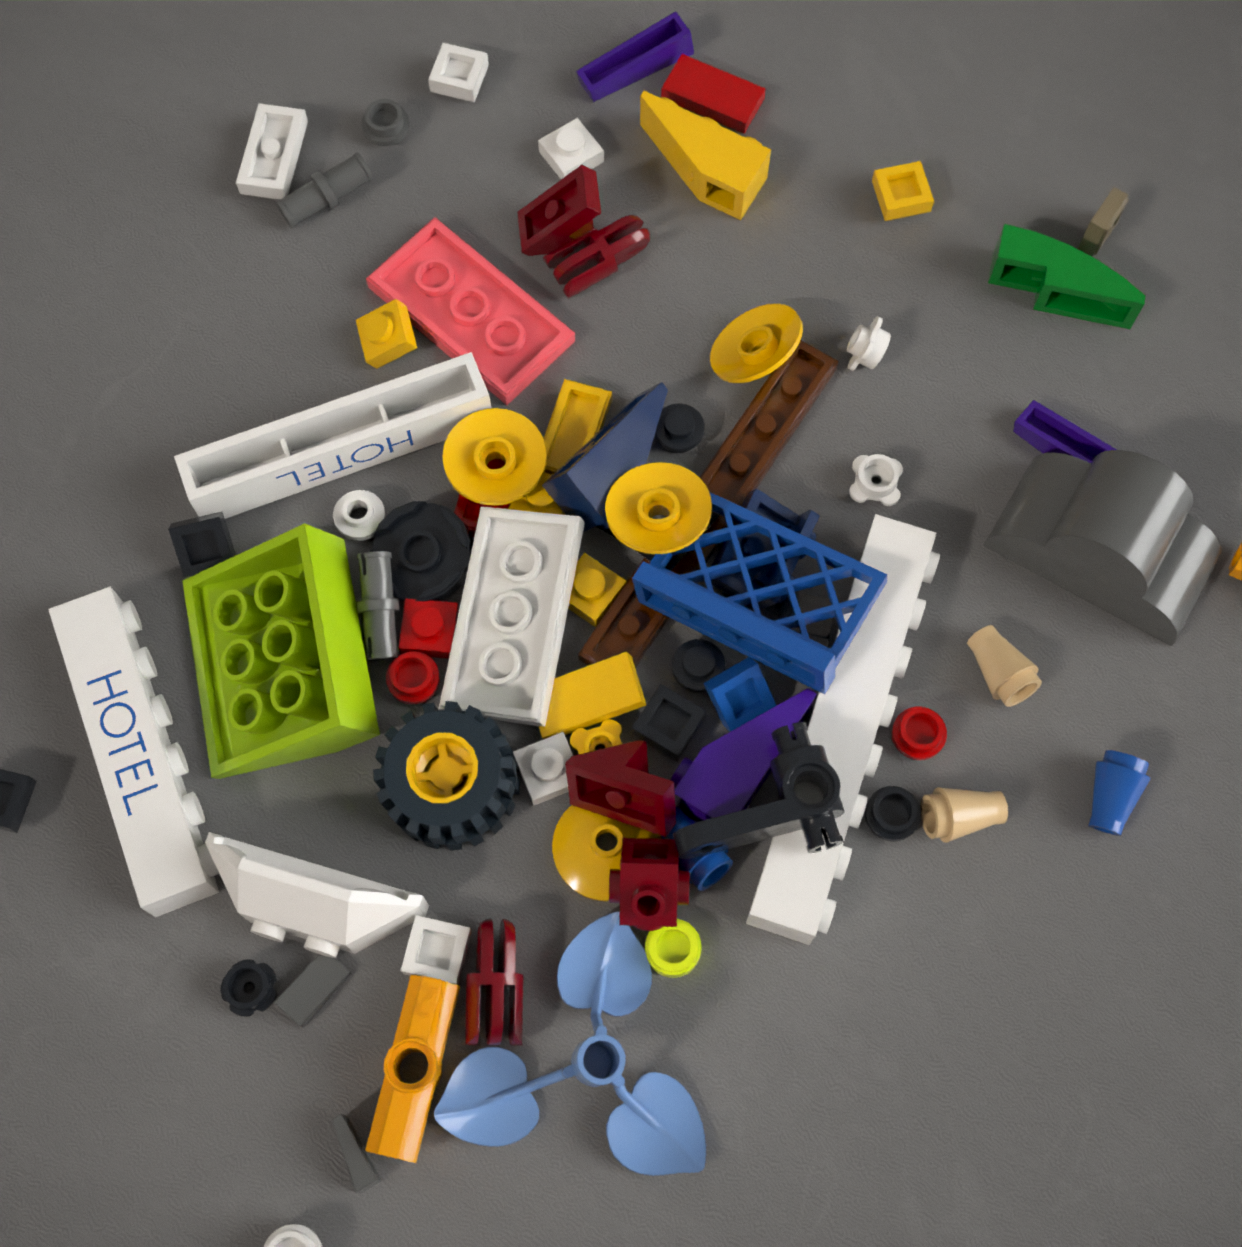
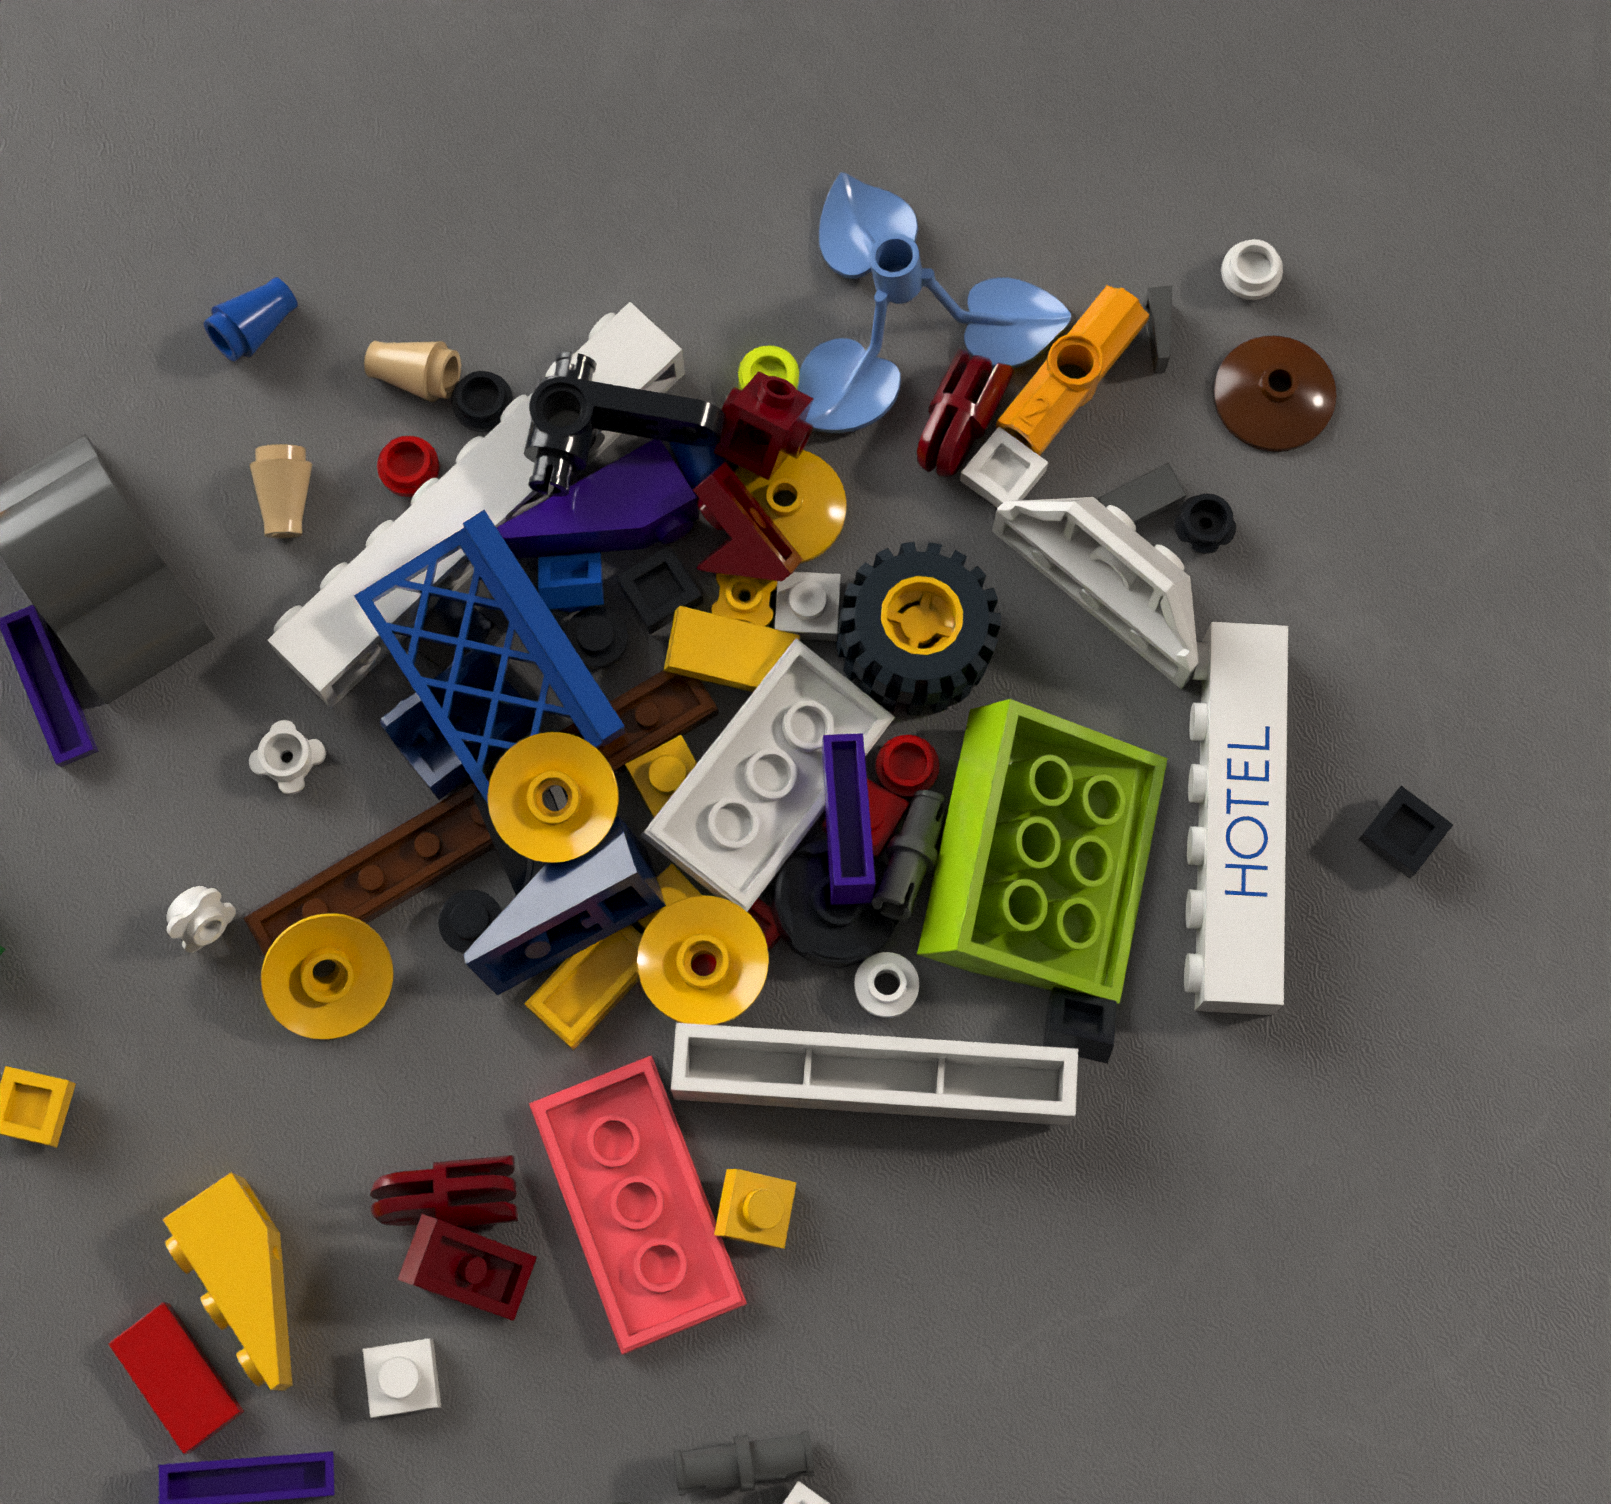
camera: 155 degrees left, 5 degrees up
(260, 1154) = (1269, 417): none -> reddish brown dish
(435, 601) = (848, 819): none -> dark purple piece

